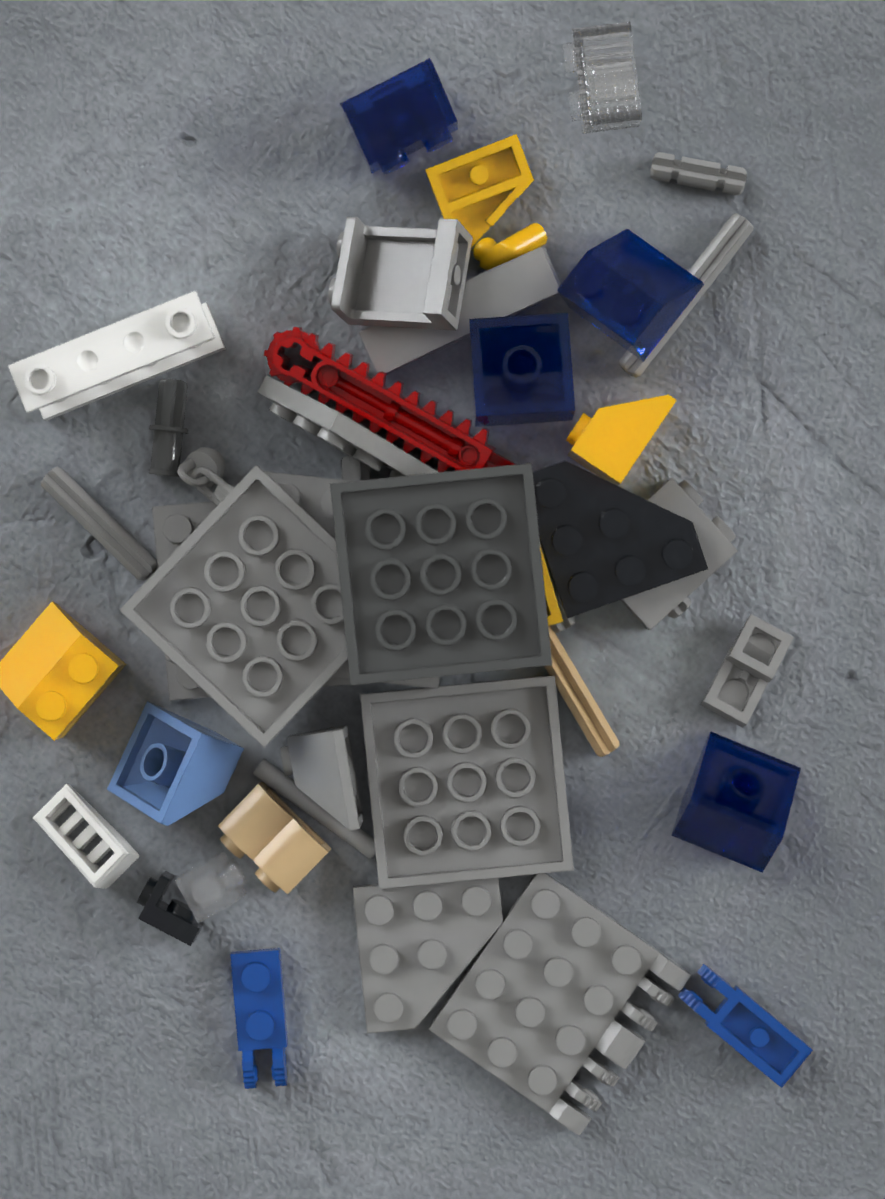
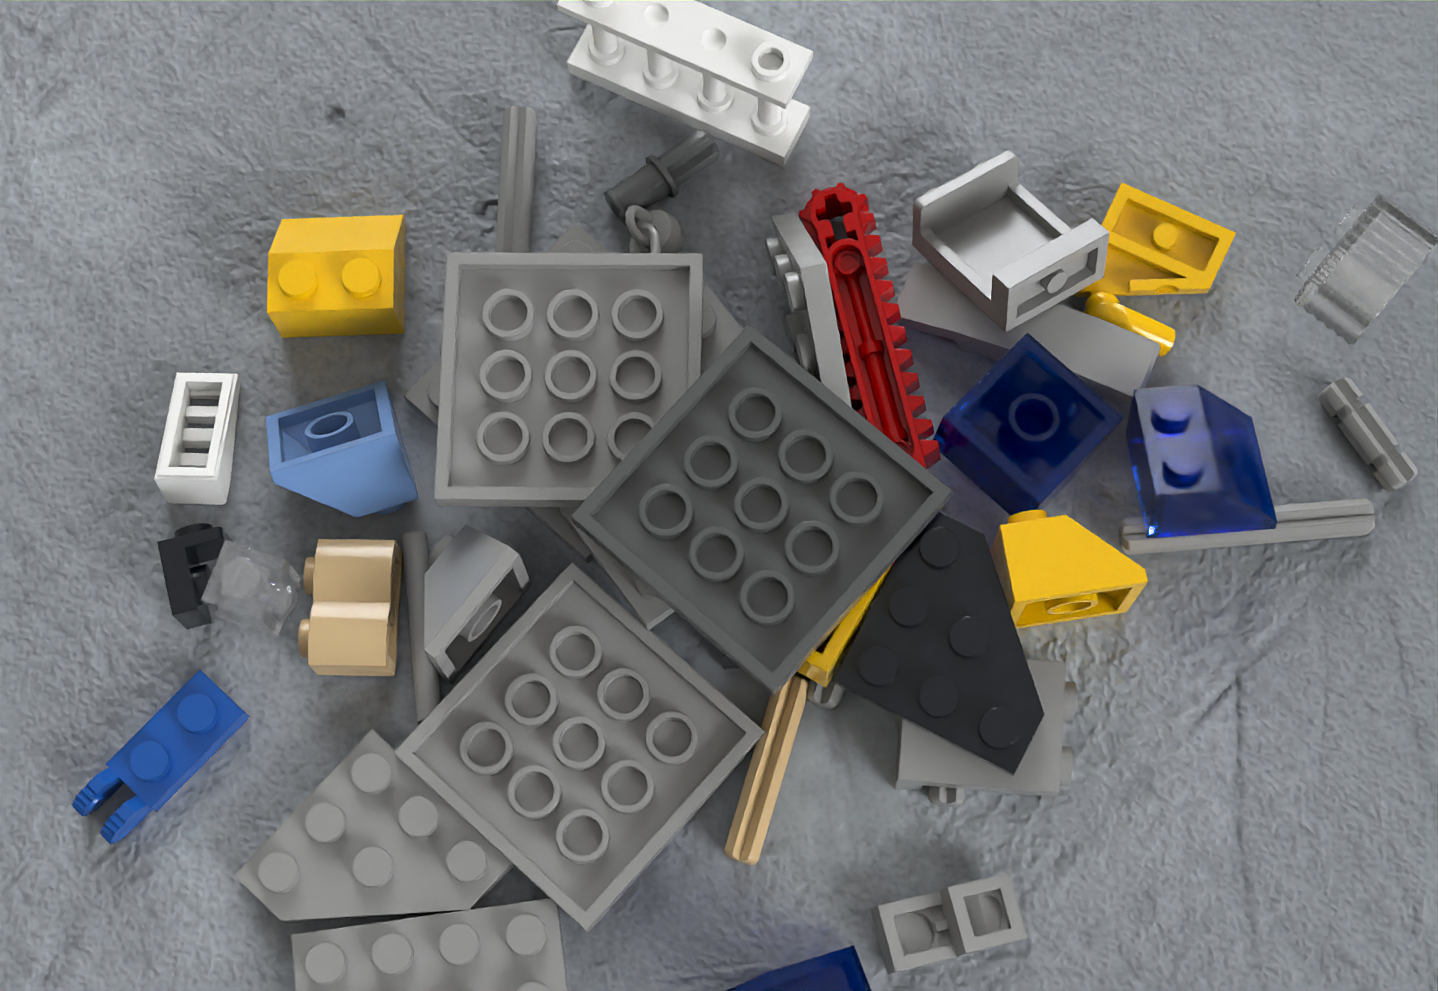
camera: 55 degrees right, 15 degrees down
(400, 118) = (1147, 114): clear blue slope -> none

